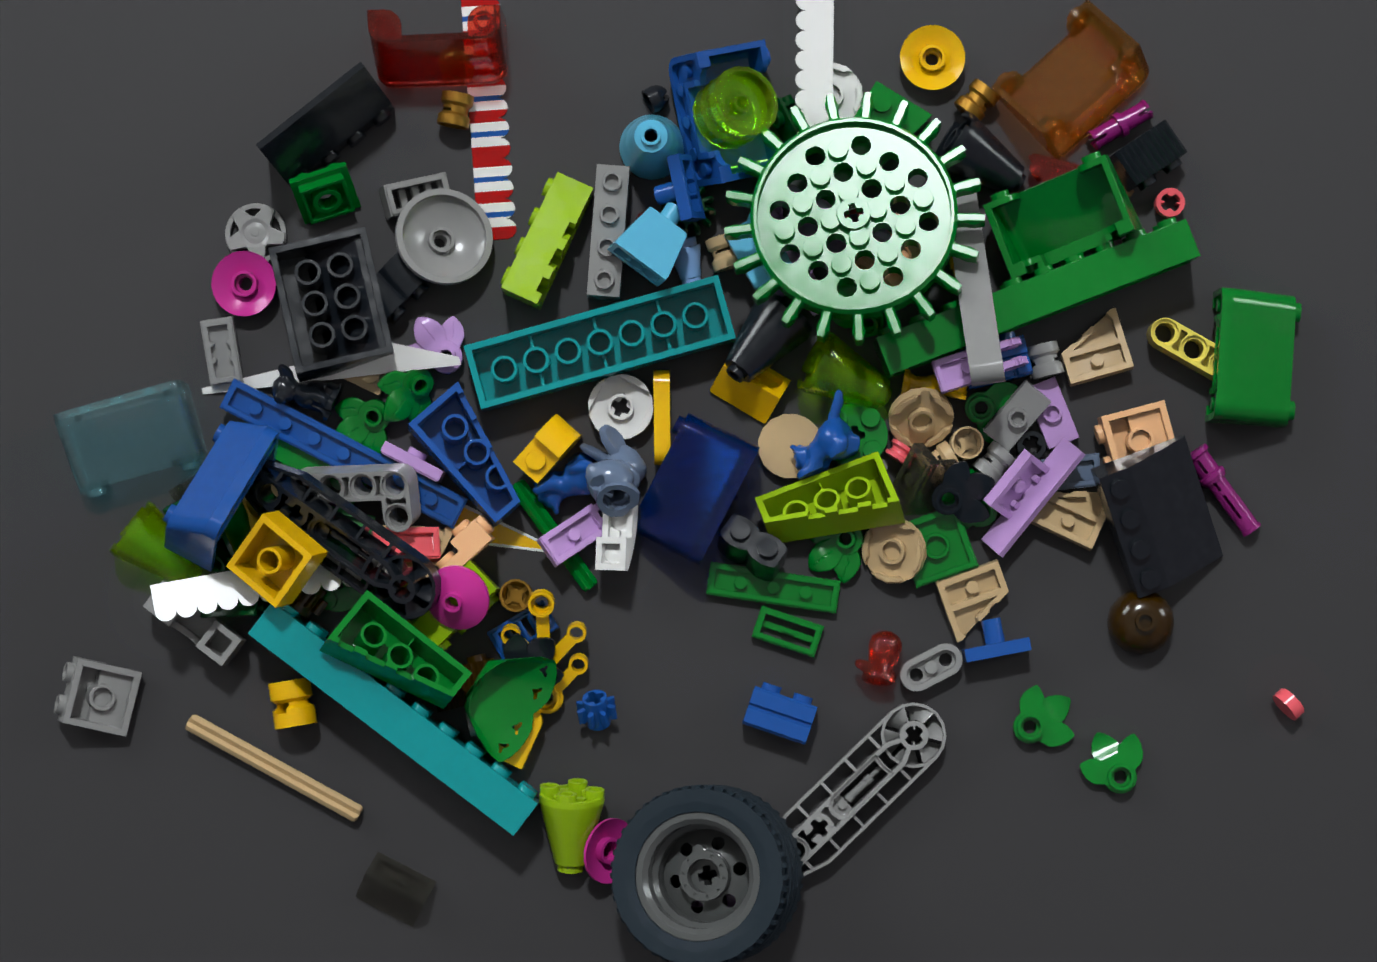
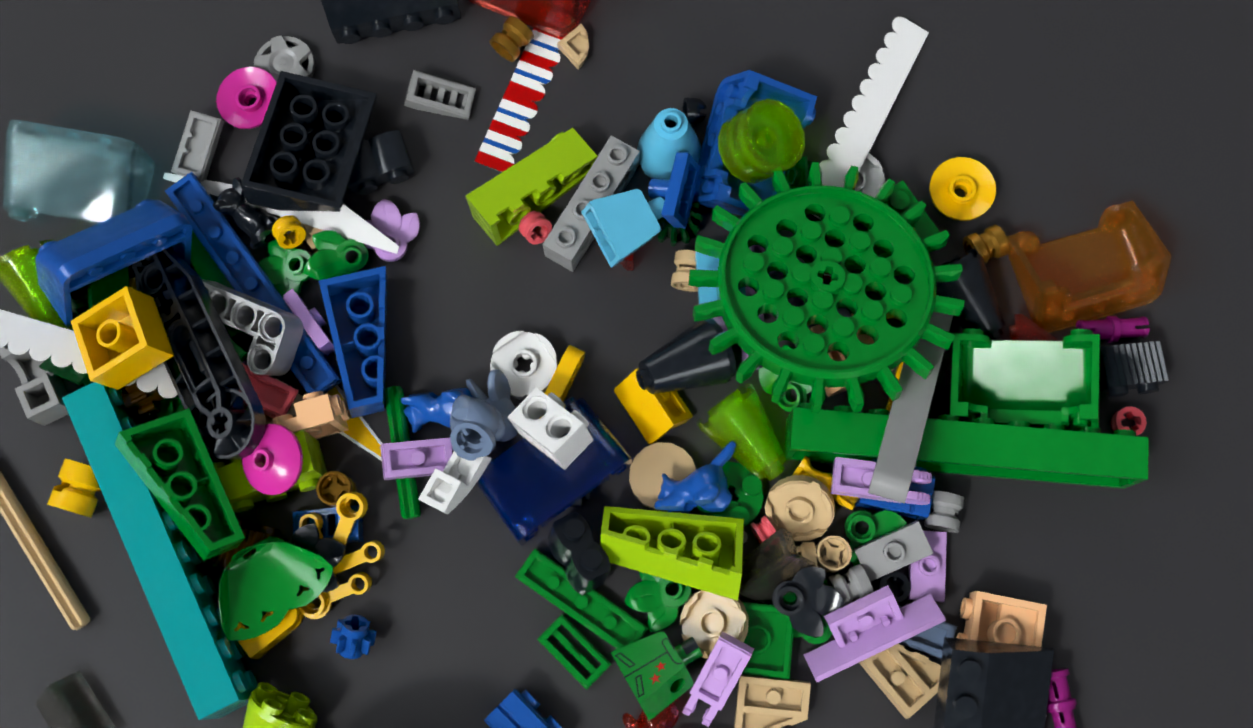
camera: 25 degrees right, 10 degrees down
(332, 180) = (370, 41): green piece -> none
(352, 391) = (286, 224): none -> yellow bush
(455, 221) = (446, 119): light grey dish -> none
(516, 86) = (575, 46): none -> tan tile
(547, 448) = (441, 363): yellow brick -> none
(568, 278) = (532, 220): none -> coral bush
(600, 343) = (532, 295): teal brick -> none
(677, 458) = (548, 430): none -> white brick
(689, 261) = (651, 262): light blue cone -> none
(865, 612) = (657, 670): none -> green torso
(919, 592) = (718, 676): none -> lavender hinge
(1098, 352) = (999, 530): tan wing -> none
(1175, 346) = (1108, 579): light yellow beam -> none
(1253, 358) = (1151, 607): green windscreen -> none

